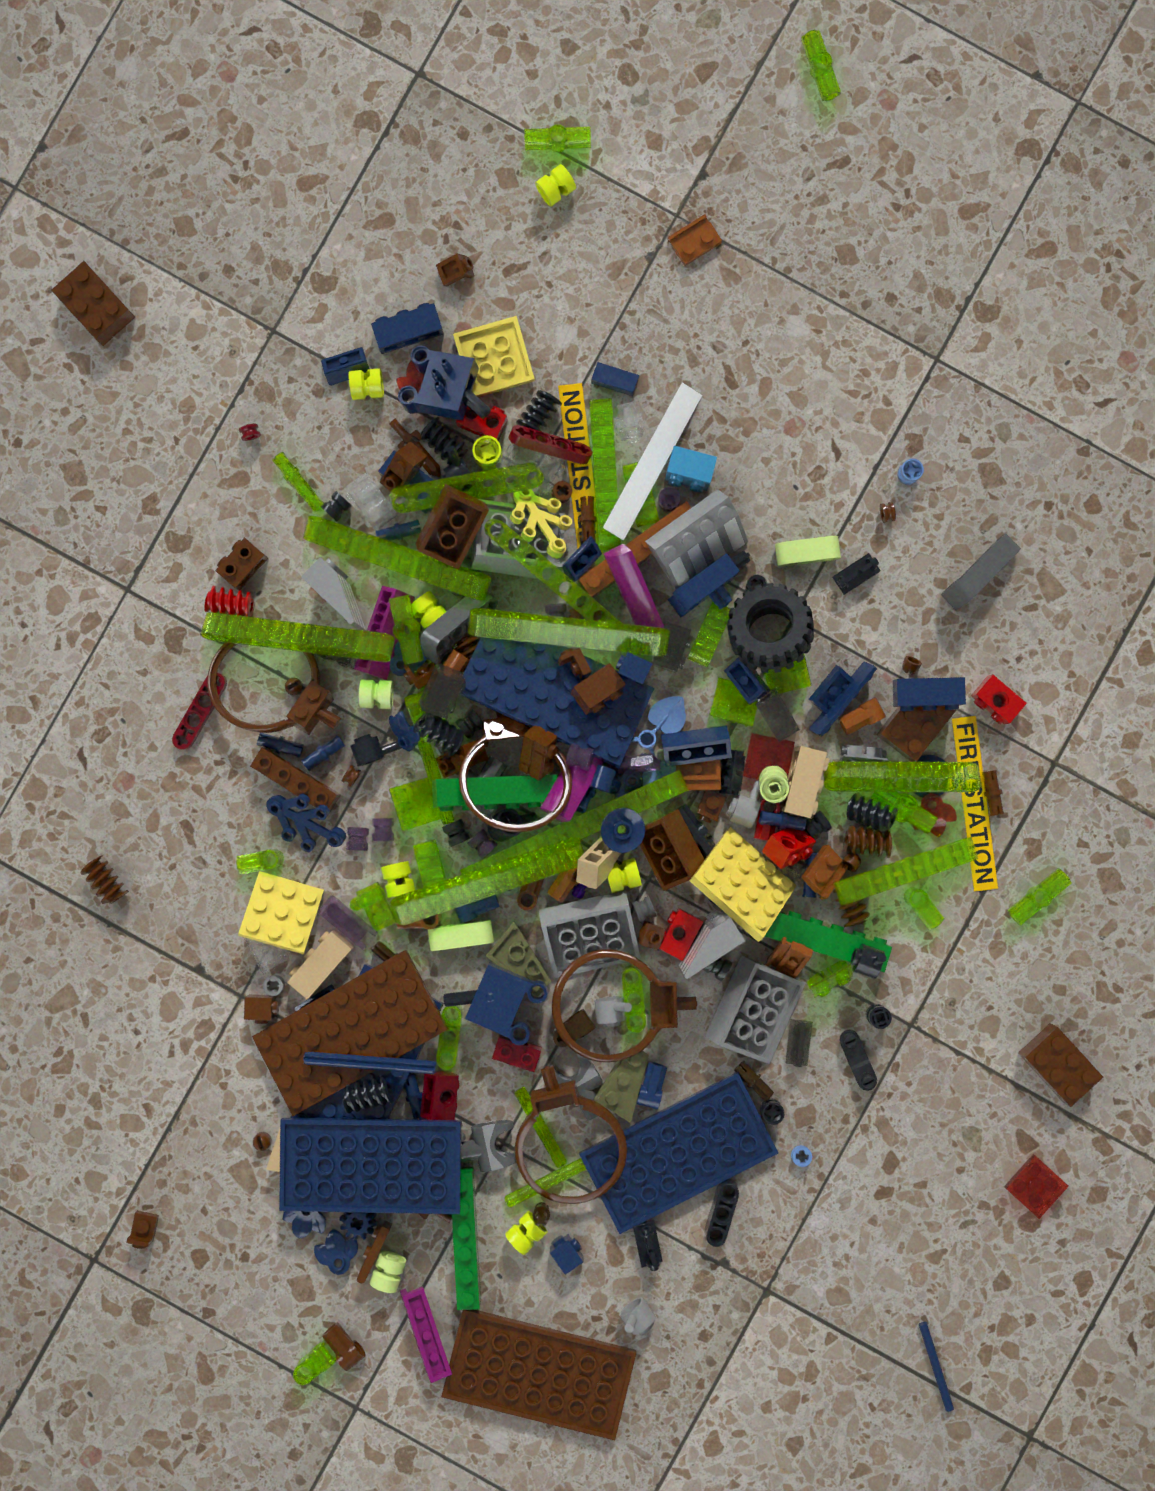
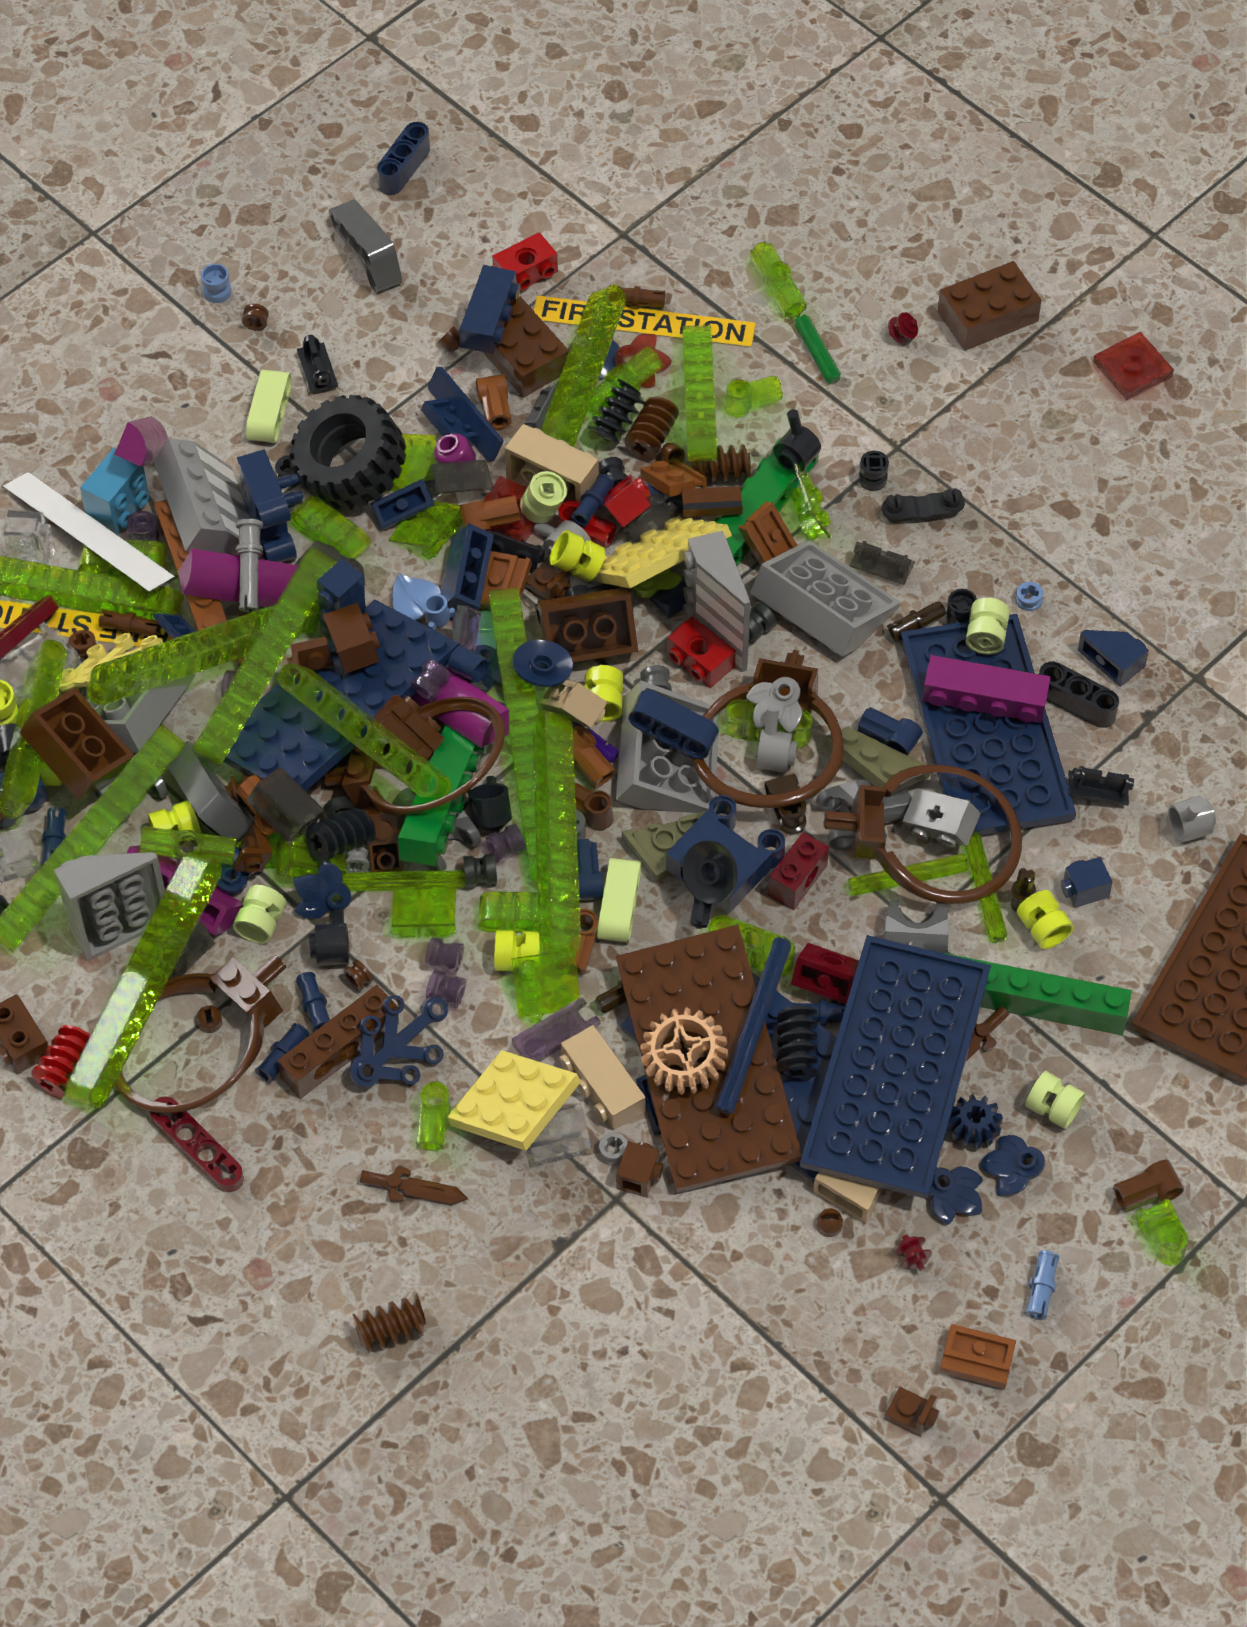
camera: 75 degrees left, 30 degrees down
(191, 1262) = (977, 1356): none -> dark orange plate
(210, 863) = (412, 1187): none -> reddish brown sword
(251, 1203) = (913, 1252): none -> dark red wheel
(253, 1292) = (1042, 1285): none -> medium blue pin
(342, 1027) = (711, 1043): none -> light nougat gear
(371, 1253) = (1023, 1113): reddish brown hinge -> none
(426, 1334) = (1154, 1072): magenta fence -> none
(473, 1003) = (700, 874): none -> black dish
(511, 717) = (352, 724): none -> clear neon green beam
(587, 1154) = (941, 818): none -> light grey brick
(596, 939) = (673, 724): none -> dark blue beam
(639, 1001) = (767, 694): none -> light grey plate
(648, 591) = (249, 550): none -> light grey pin
(651, 935) = (691, 679): reddish brown bracket -> none
(699, 1150) = (986, 689): none -> magenta brick
(725, 826) = (574, 554): none -> neon yellow wheel
(727, 477) = (142, 441): none -> magenta brick
(747, 742) = (490, 513): none -> dark orange piece
(753, 1139) = (987, 626): none -> yellowish green wheel
(764, 1232) = (1114, 653): none -> dark blue slope
(799, 704) = (453, 449): none -> magenta head
(805, 909) = (712, 501): none -> reddish brown tile
(983, 943) = (817, 349): none -> green axle
(1020, 1004) = (903, 327): none -> dark red wheel
(1086, 573) = (403, 158): none -> dark blue beam

